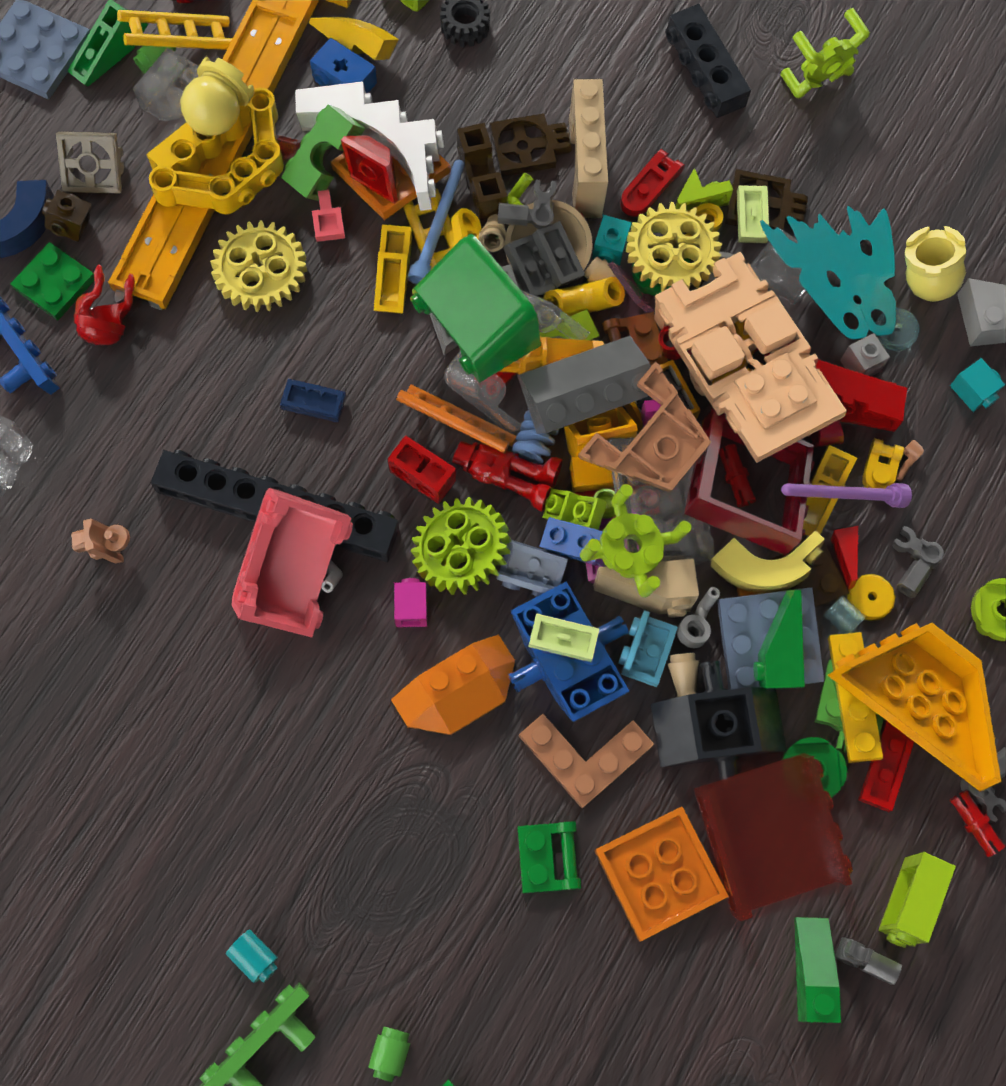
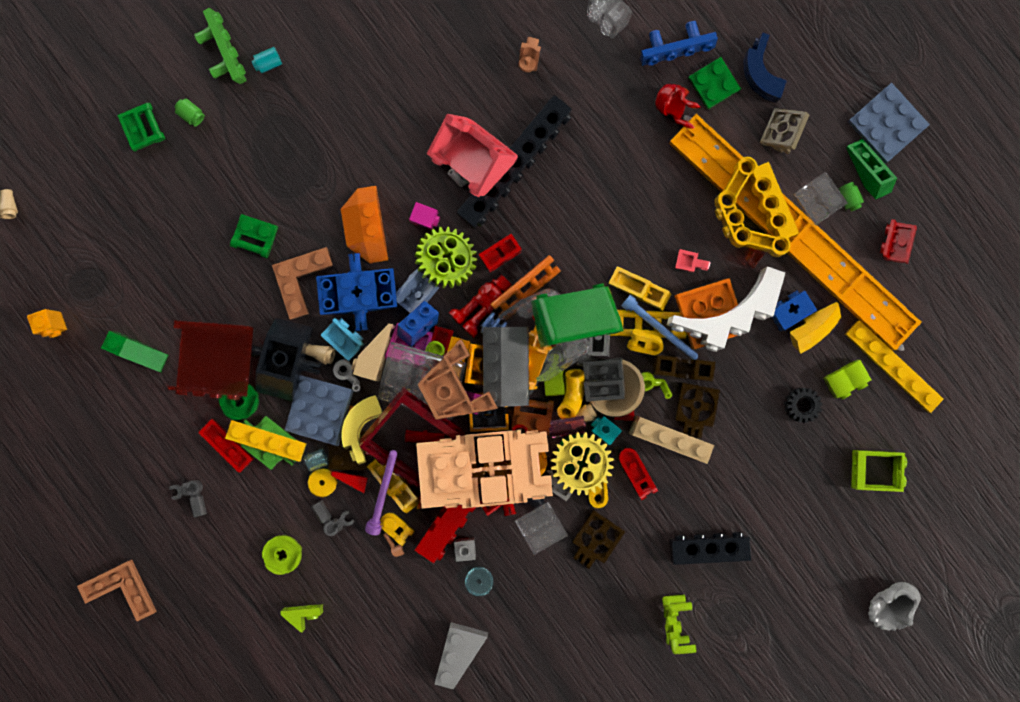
camera: 115 degrees right, 15 degrees up
(66, 215) = (757, 108): dark brown brick -> none
(165, 38) = (855, 204): yellow bar -> none
(214, 98) = (783, 210): light yellow tile -> none
(270, 286) = (691, 207): light yellow gear -> none
(306, 168) = (726, 260): bright green arch -> none
(313, 400) = (572, 208): dark blue plate -> none
(371, 165) = (710, 299): red slope -> none
(493, 234) = (638, 358): tan cone -> none
(539, 216) = (632, 388): flat silver bar -> none
(563, 637) = (361, 288): yellowish green plate -> none
(574, 508) = (438, 330): lime slope -> none
(643, 531) = (386, 355): lime plate -> none
(661, 873) = (219, 291): orange plate -> none
(694, 194) = (615, 494): lime slope -> none
(751, 209) = (587, 525): yellowish green plate -> none
(782, 653) = (306, 409): green slope -> none
(859, 274) = (527, 569): teal piece -> none
(870, 962) = (128, 381): flat silver bar -> none
(916, 900) = (144, 419): lime window -> none
(932, 695) = (248, 482): light orange piece -> none
(935, 263) = (505, 620): light yellow tile -> none
(977, 823) = (172, 477): red pin -> none
(978, 385) = (420, 611): teal brick -> none

